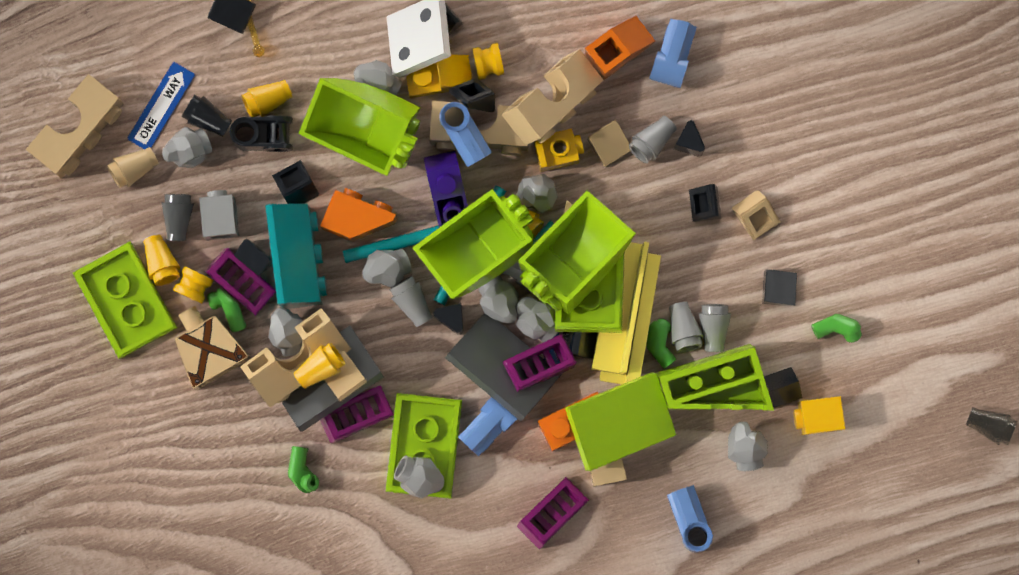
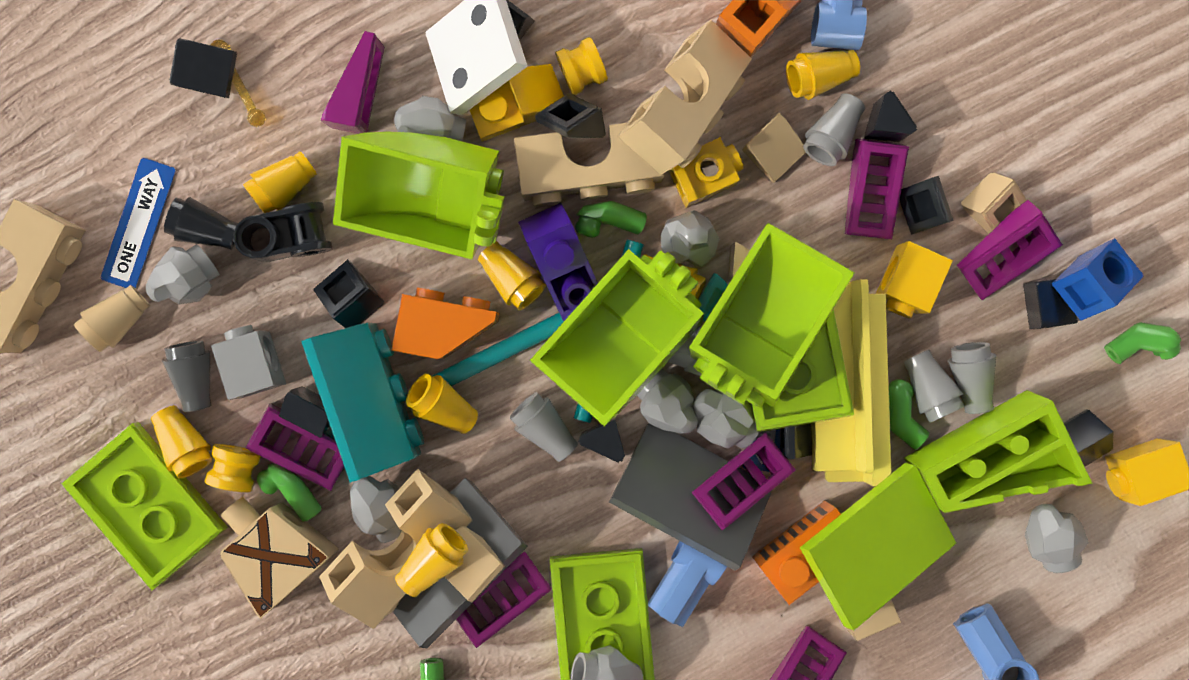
camera: 10 degrees left, 5 degrees up
(329, 50) = (355, 92): none -> magenta slope
(344, 269) = (441, 404): none -> yellow cone
(386, 267) = (498, 388): light grey rock -> none
(411, 194) = (511, 276): none -> yellow cone
(466, 136) = (573, 179): medium blue piece -> none
(490, 166) = (609, 214): none -> bright green arm
(650, 98) = (820, 71): none -> yellow cone
(684, 251) = (913, 279): none -> yellow brick
(686, 159) = (892, 190): none -> magenta slope
(759, 255) = (1030, 250): none -> magenta slope
(799, 277) = (1098, 280): none -> blue brick

